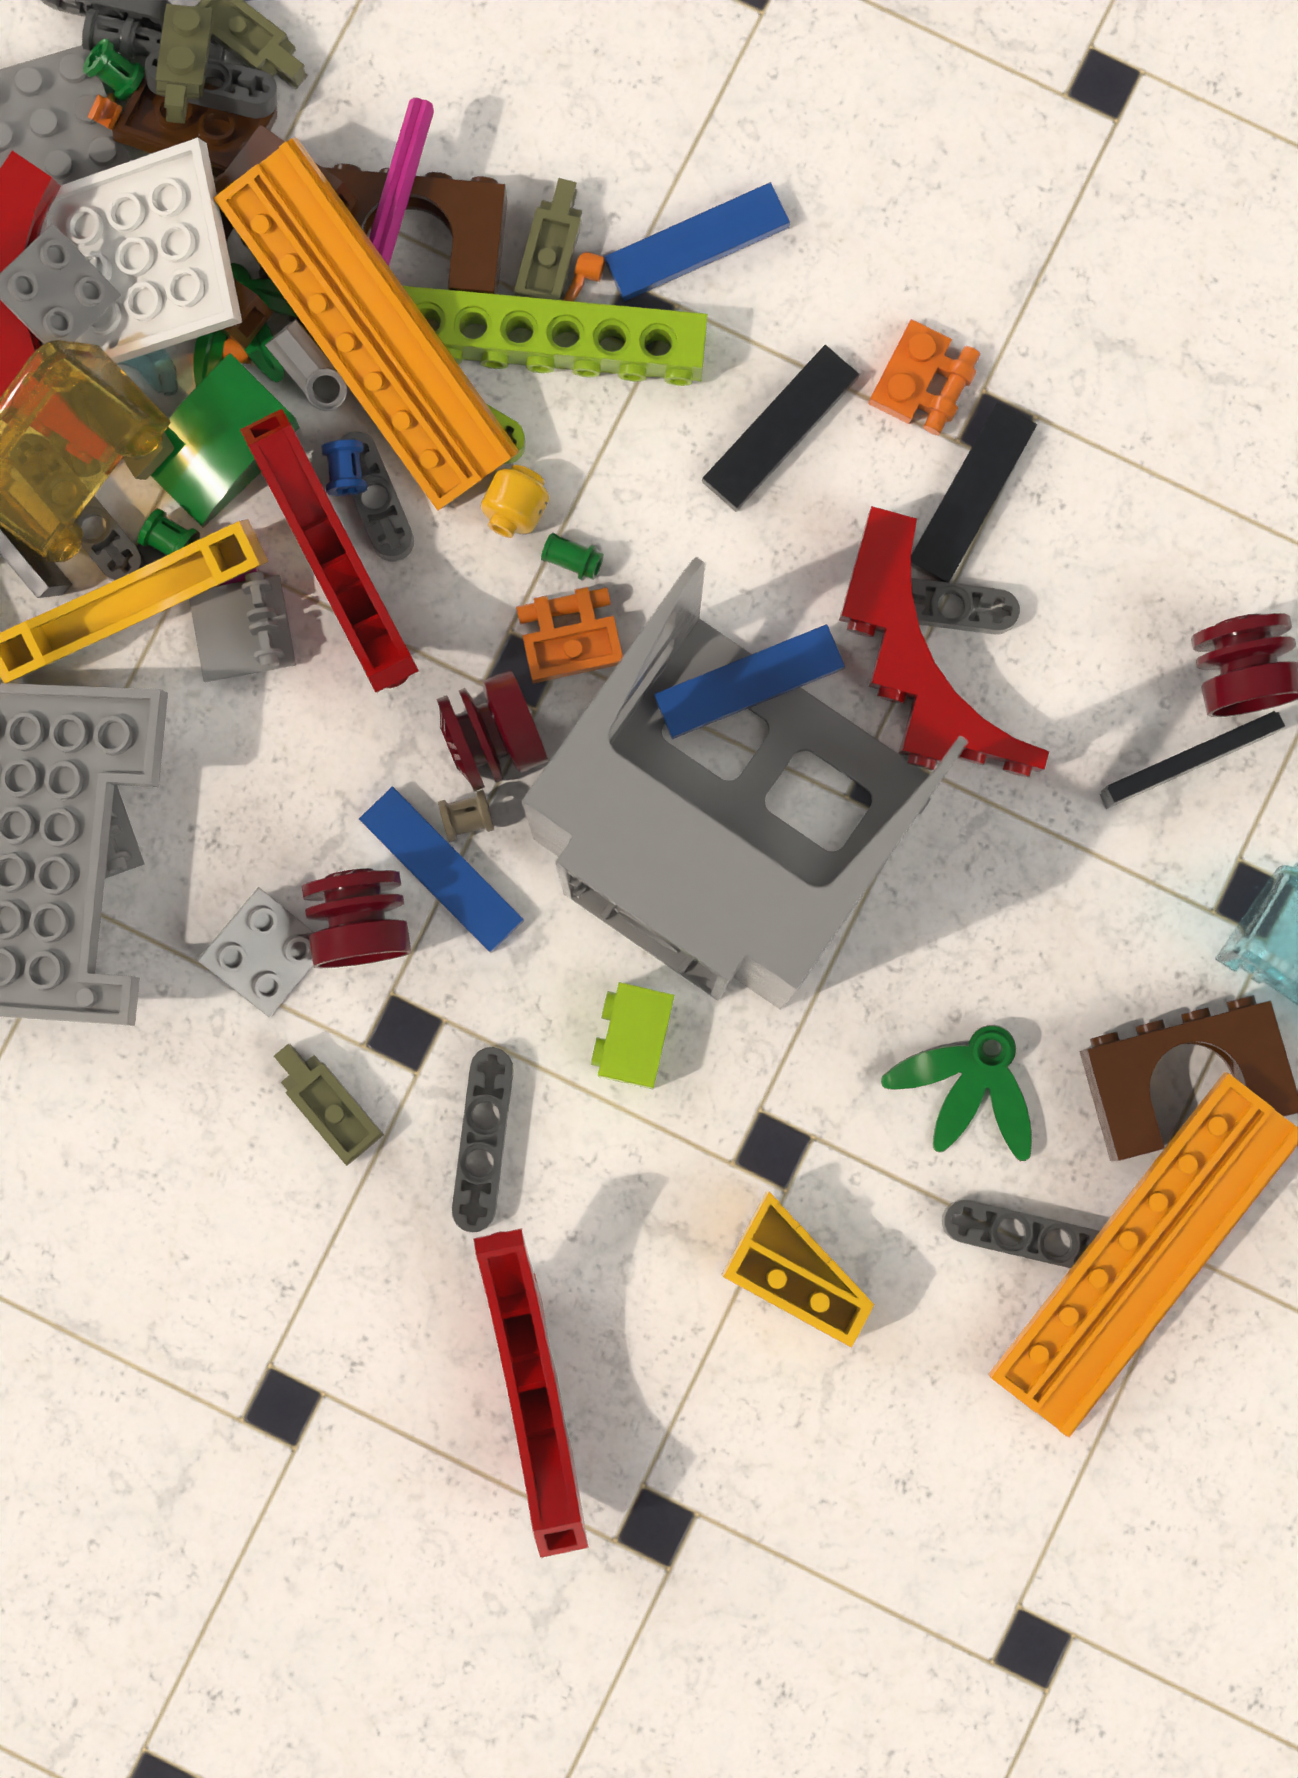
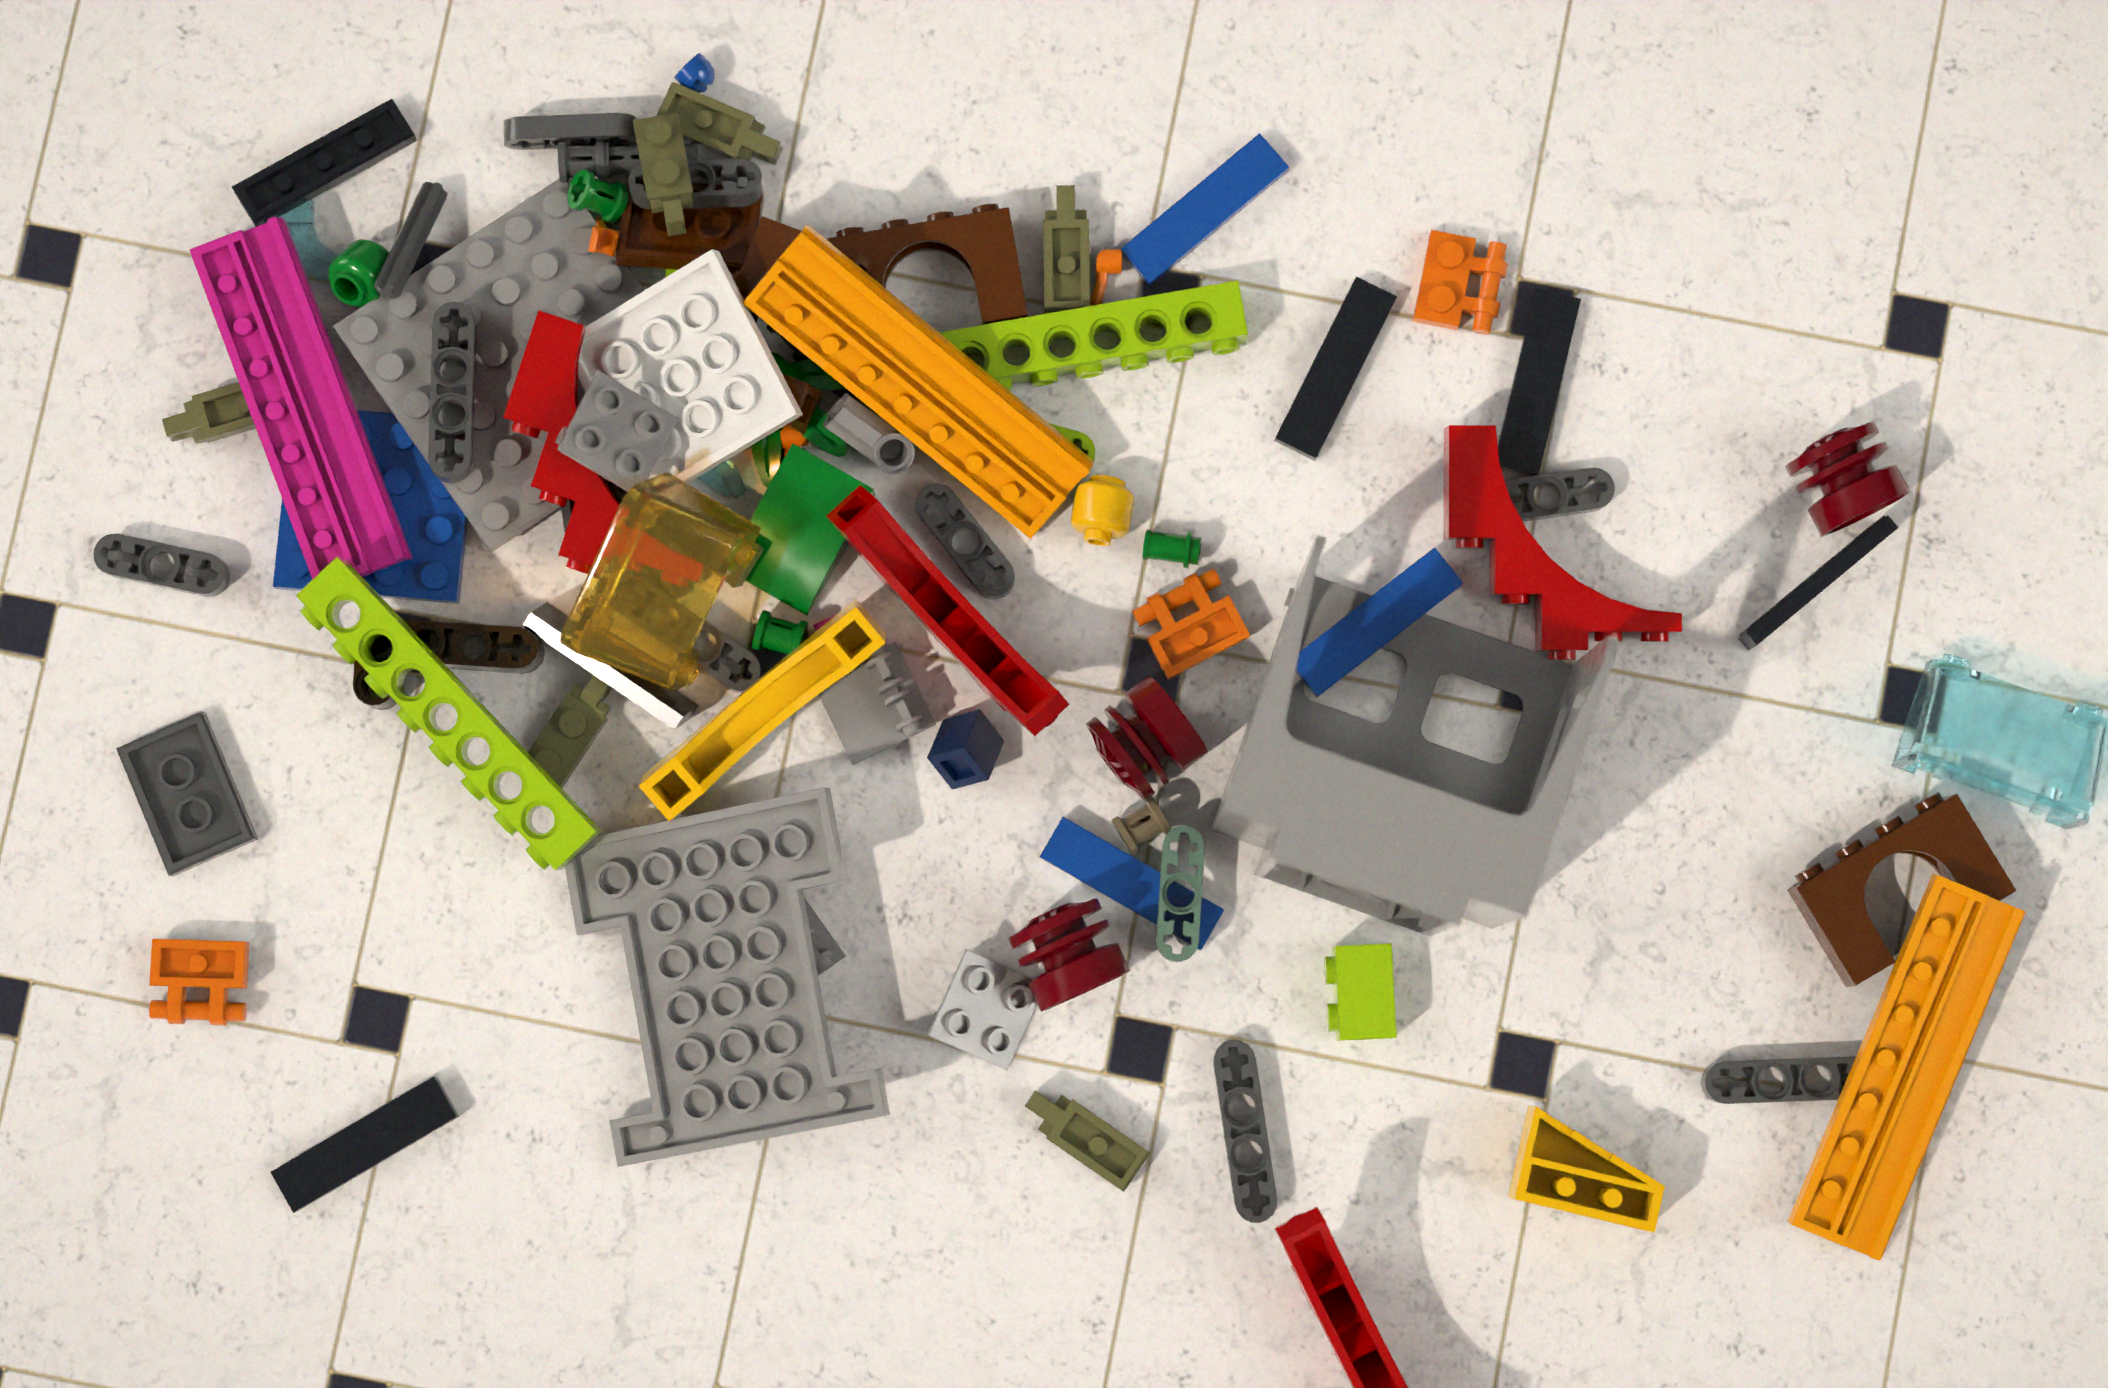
camera: 10 degrees left, 0 degrees up
(316, 695) = (965, 749): none -> dark blue panel
(344, 467) = (932, 523): blue bush -> none
(401, 176) = (908, 228): dark pink axle -> none
(506, 861) = (1170, 857): none -> sand green beam
(965, 1096) = (1691, 963): green plant -> none

